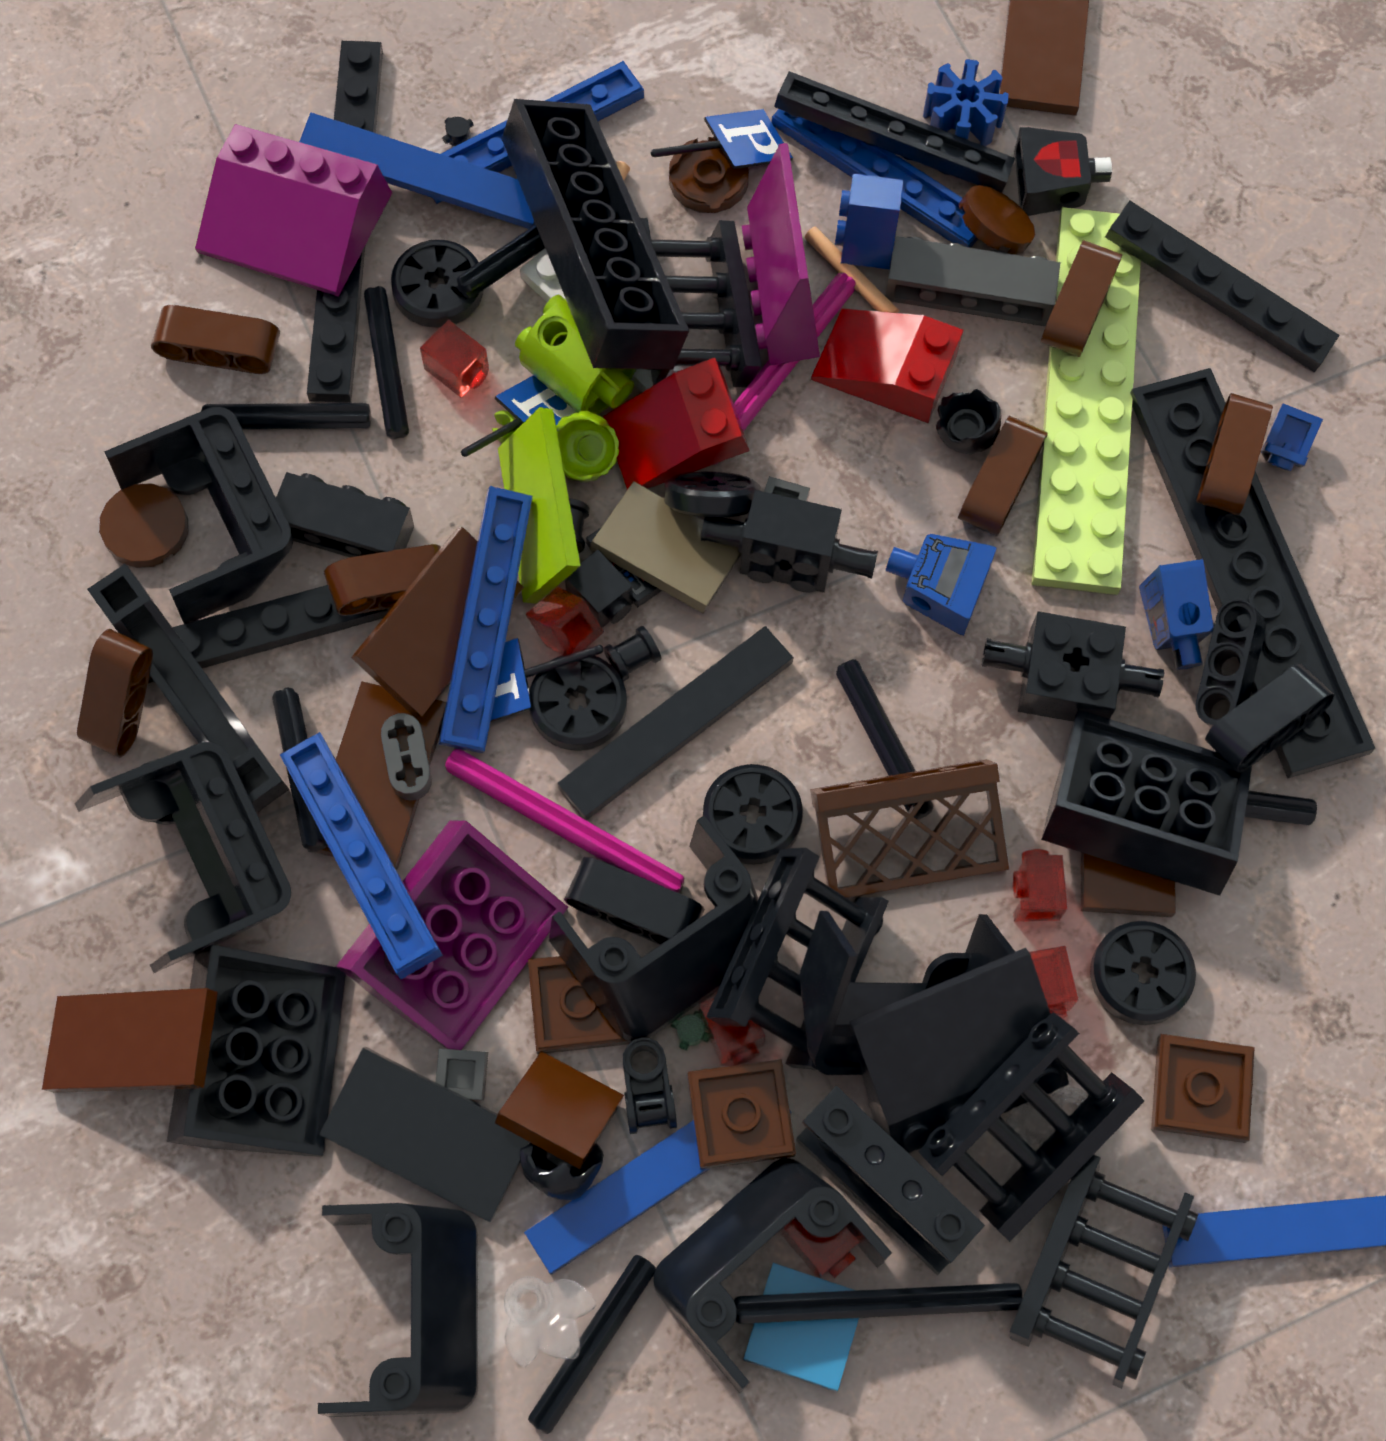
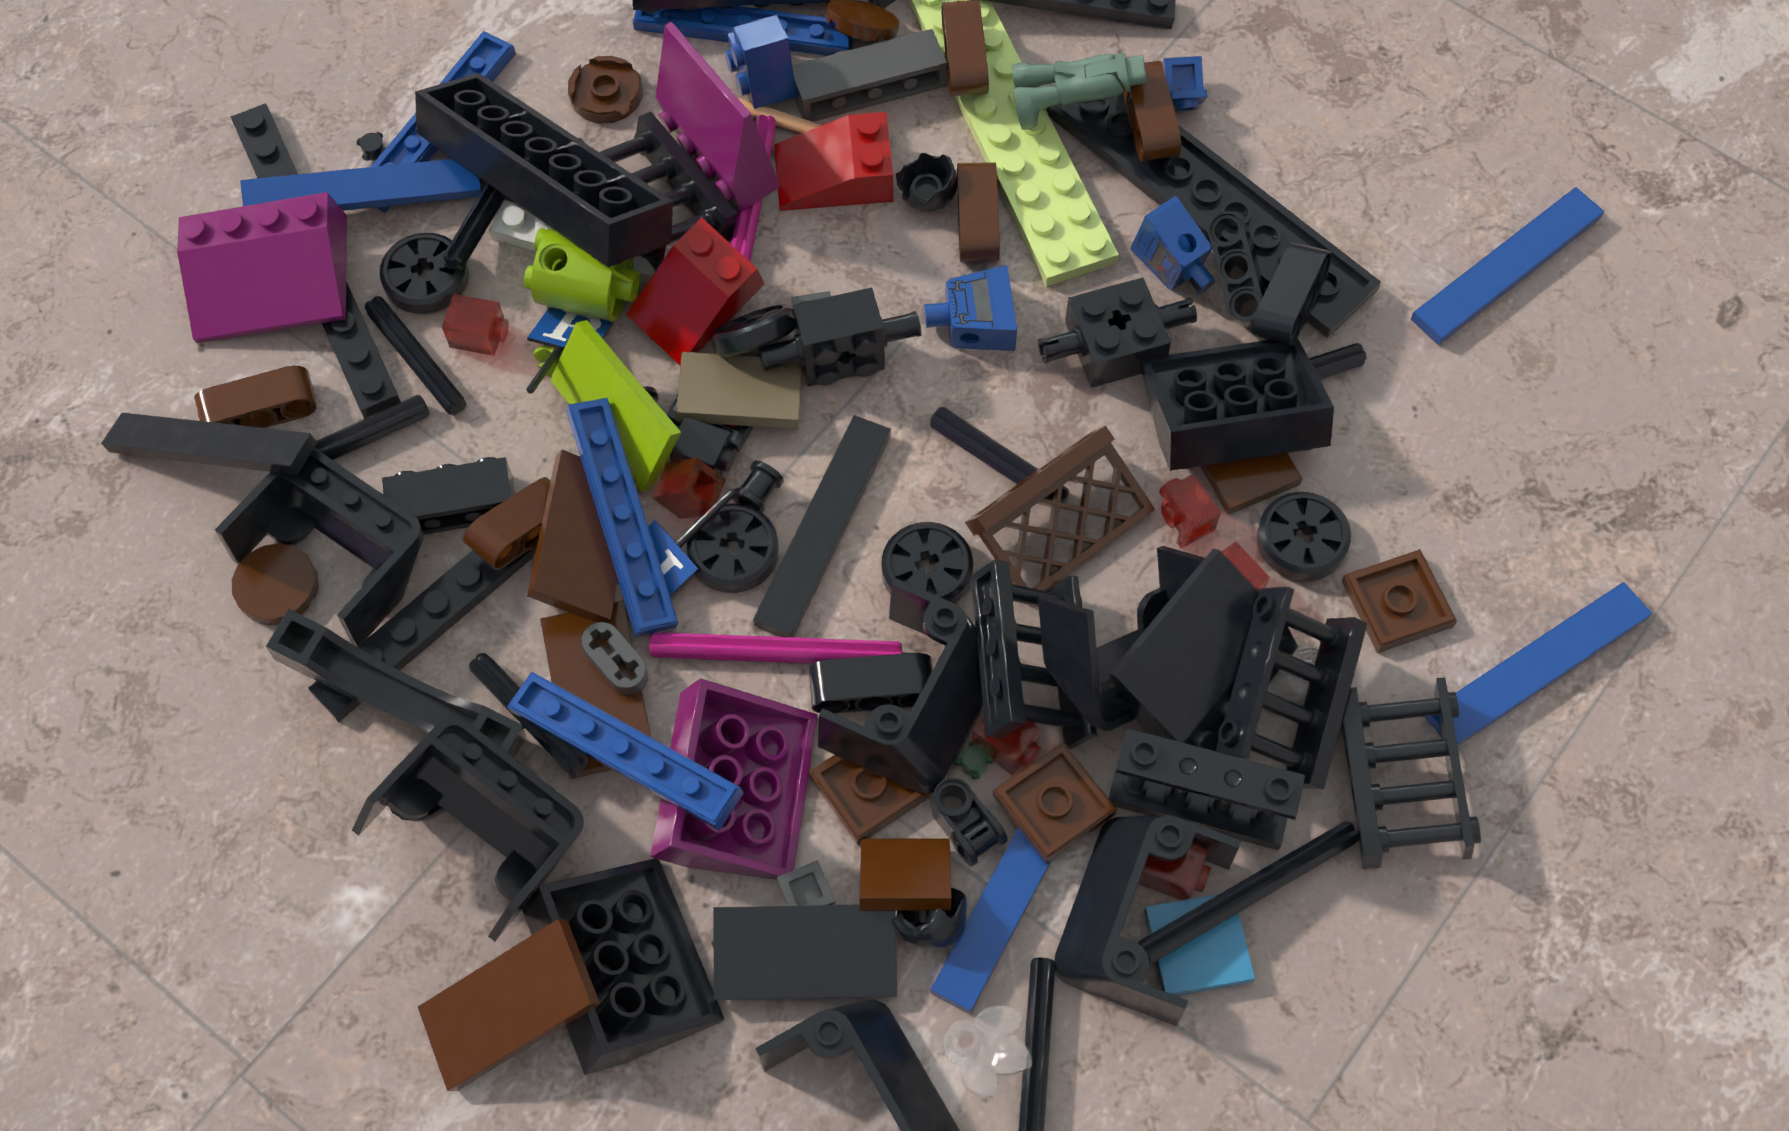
camera: 25 degrees left, 5 degrees down
(114, 693) = (332, 726): reddish brown beam -> none
(149, 363) = (210, 443): none -> black tile
(587, 446) = (629, 338): lime hair -> none
(744, 137) = (619, 47): piece -> none
(1170, 388) = (1074, 81): none -> sand green piece

